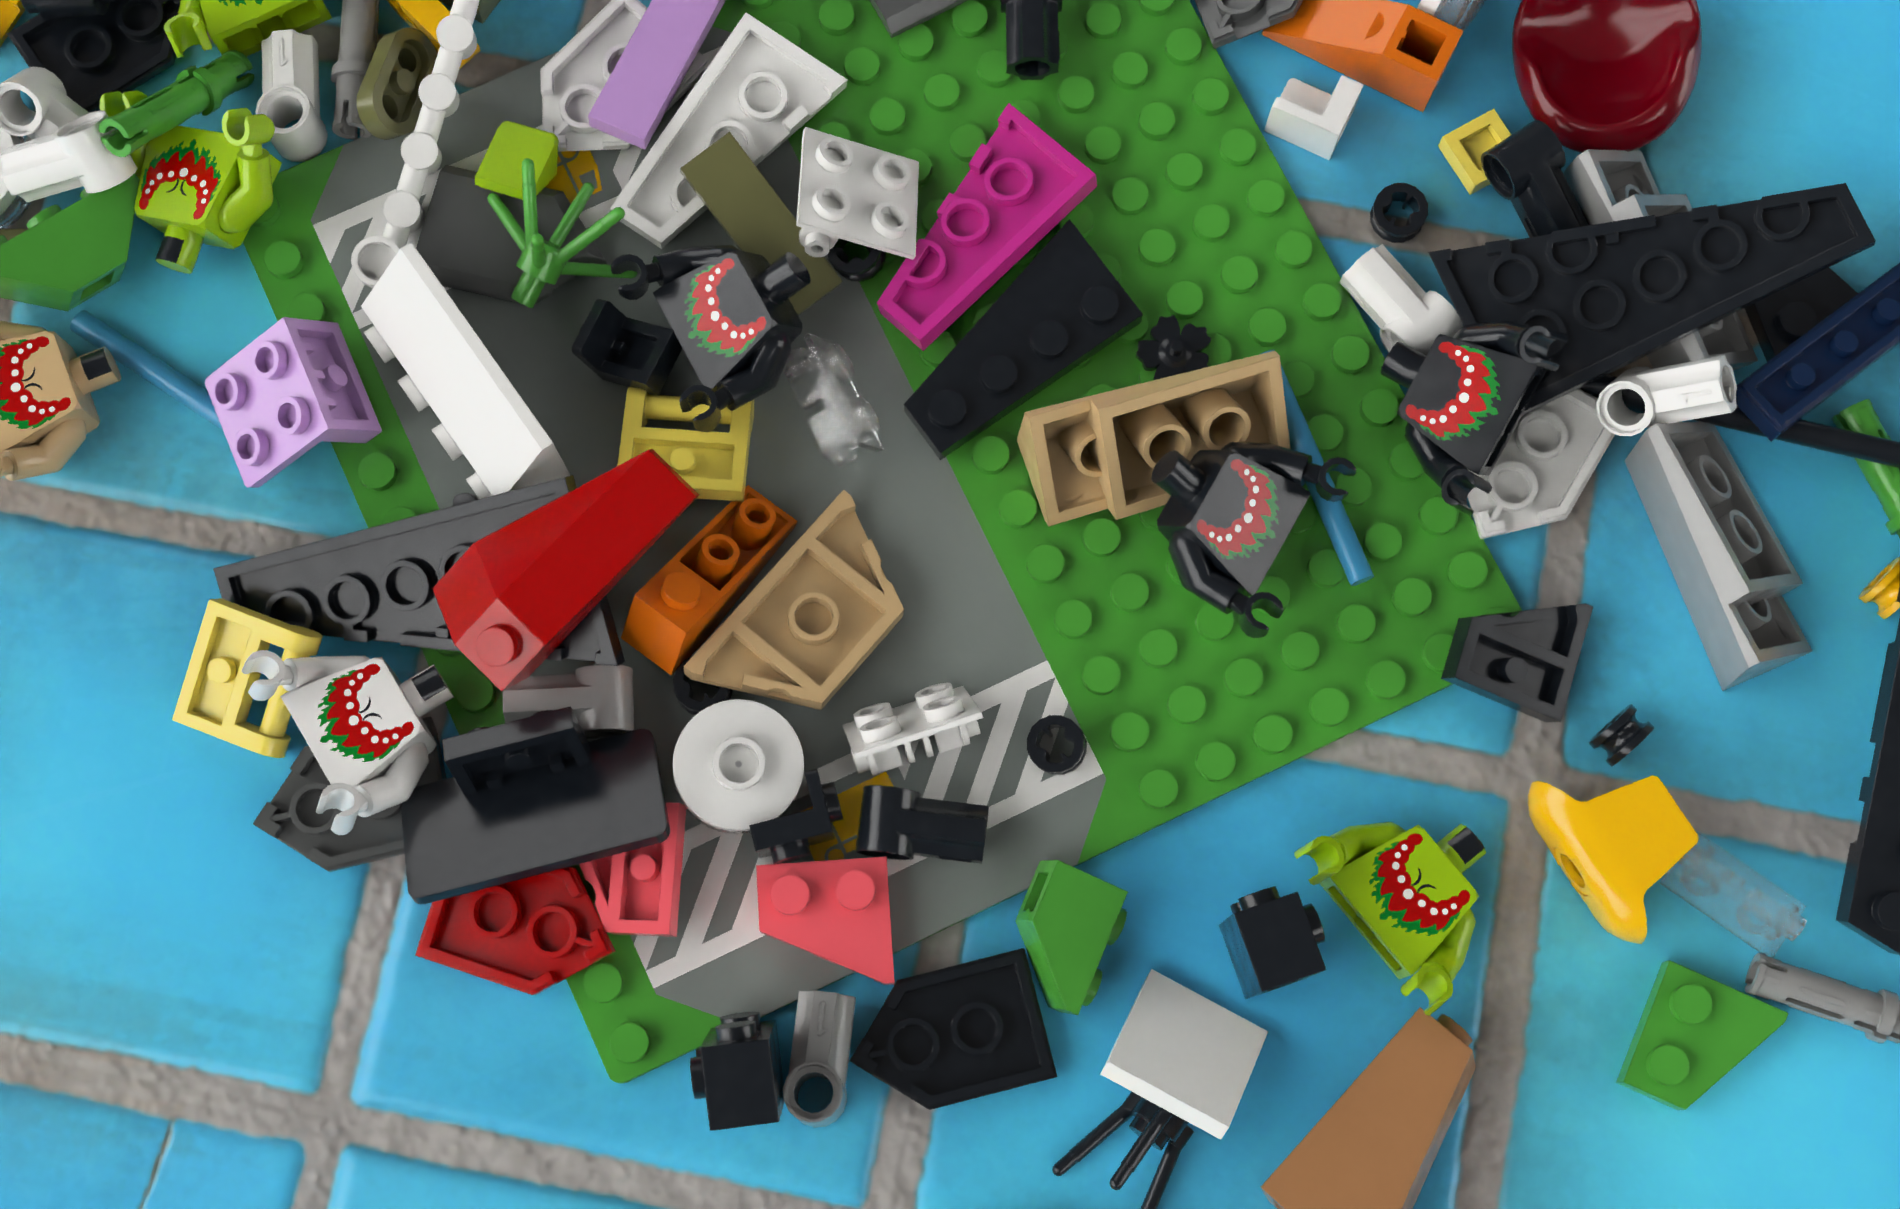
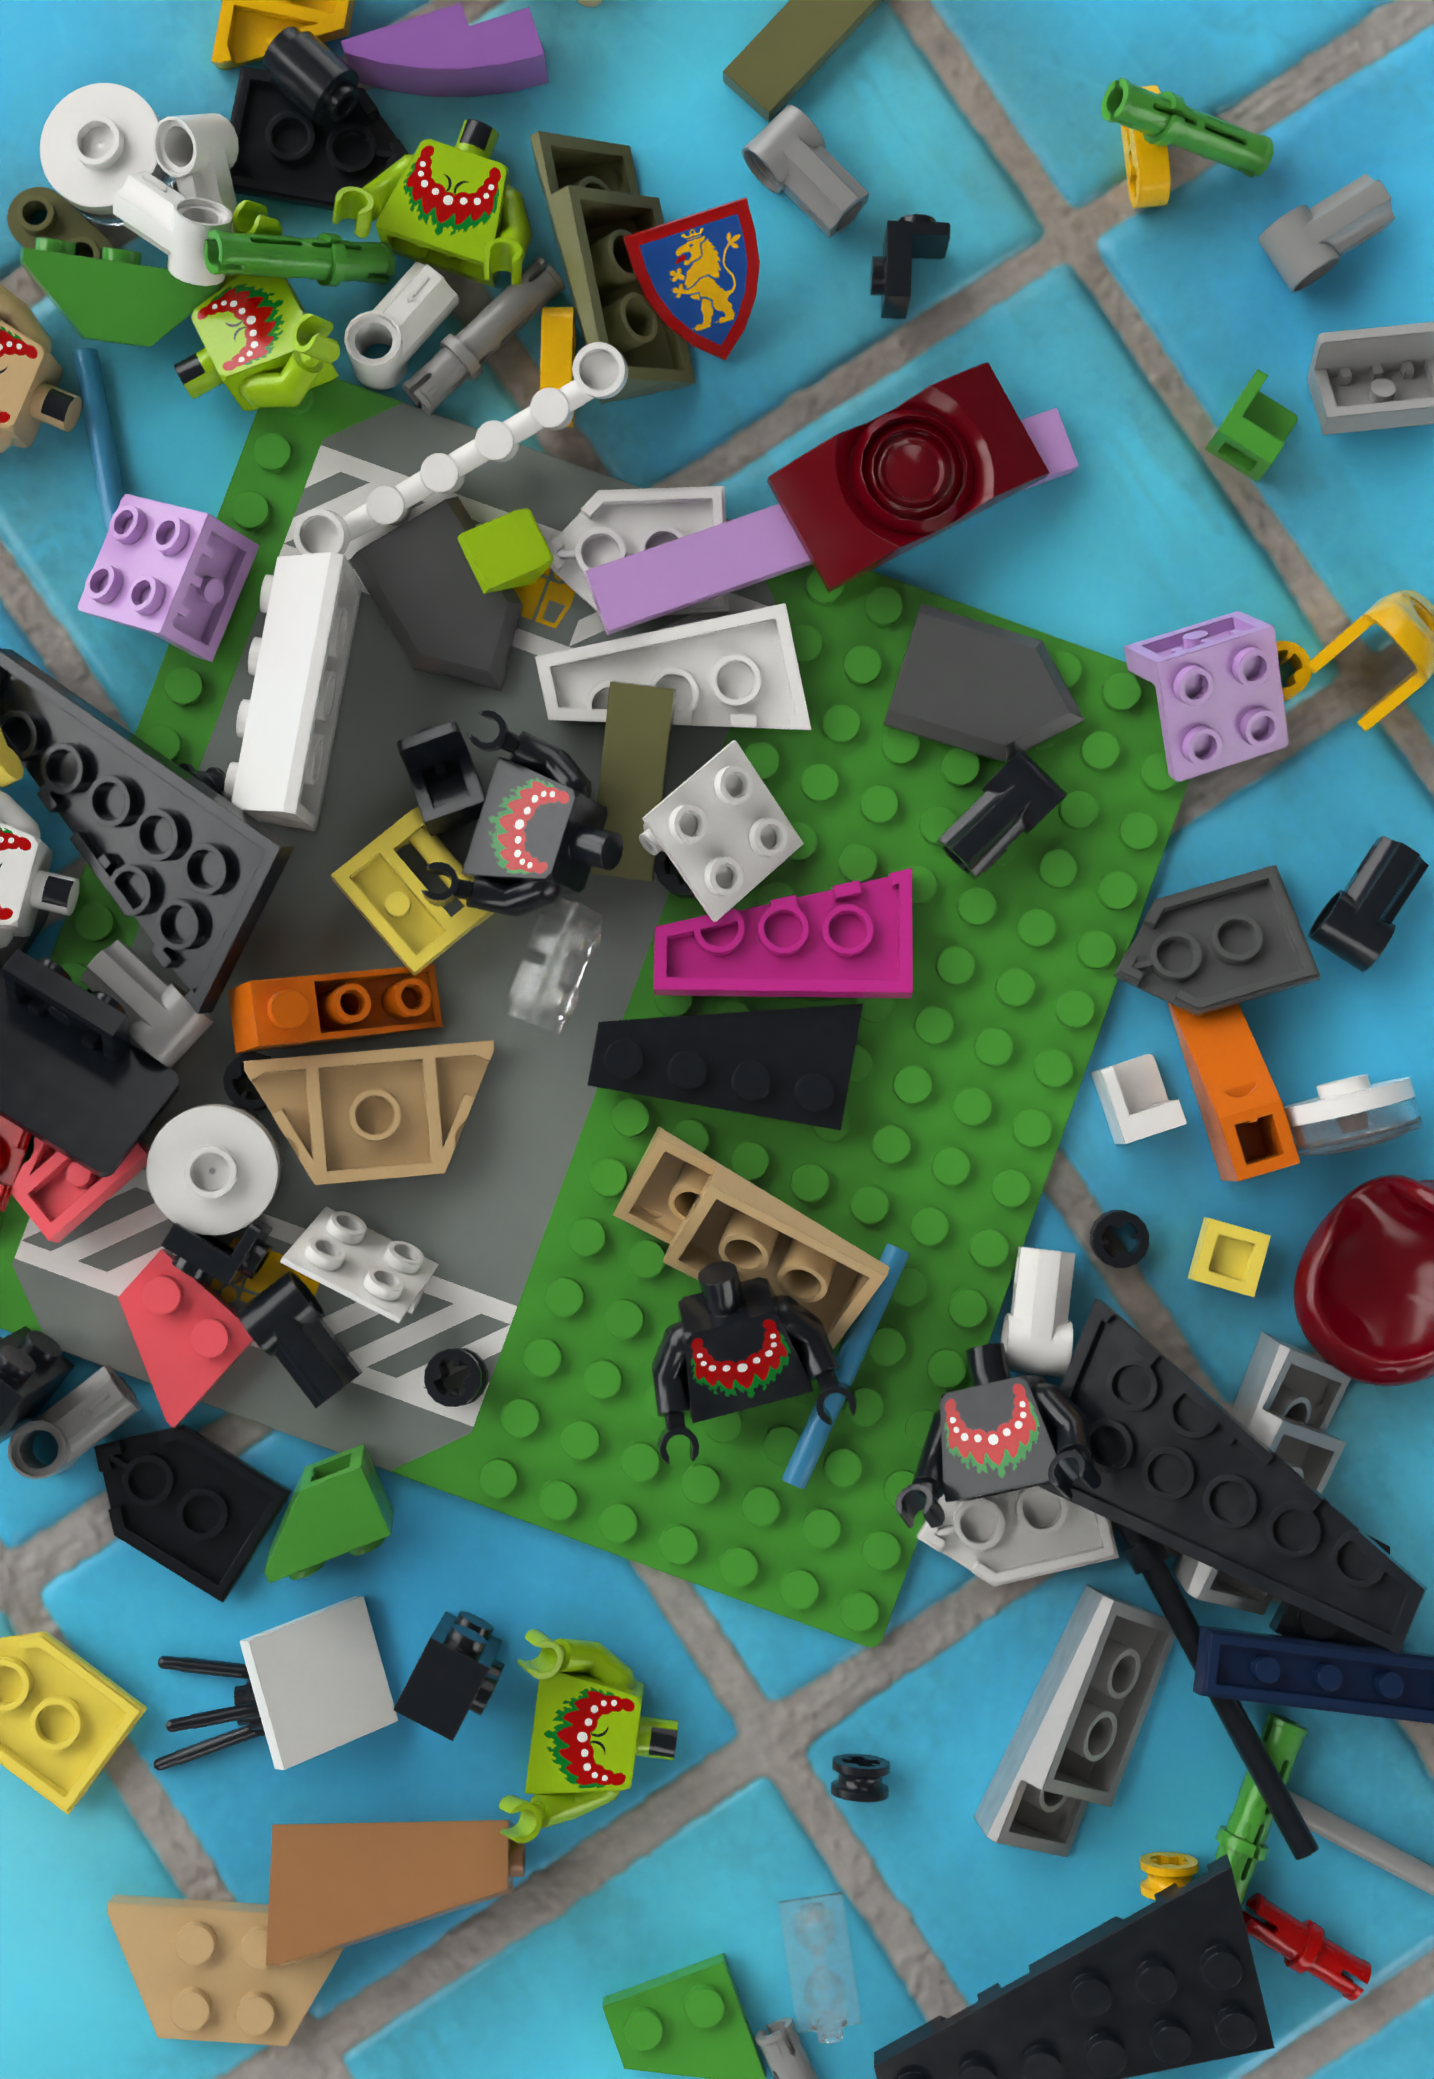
camera: 45 degrees right, 10 degrees up
(389, 91) = (479, 396): olive plate -> none
(543, 259) = (449, 650): bright green plant -> none
(543, 574) = (196, 900): red wedge -> none
(1173, 352) = (837, 1180): black plant -> none
(1520, 657) = (848, 1651): black wing -> none
(1530, 175) = (1235, 1317): black piece -> none
(1613, 846) = (767, 1852): yellow piece -> none
(1669, 395) = (1146, 1586): white piece -> none

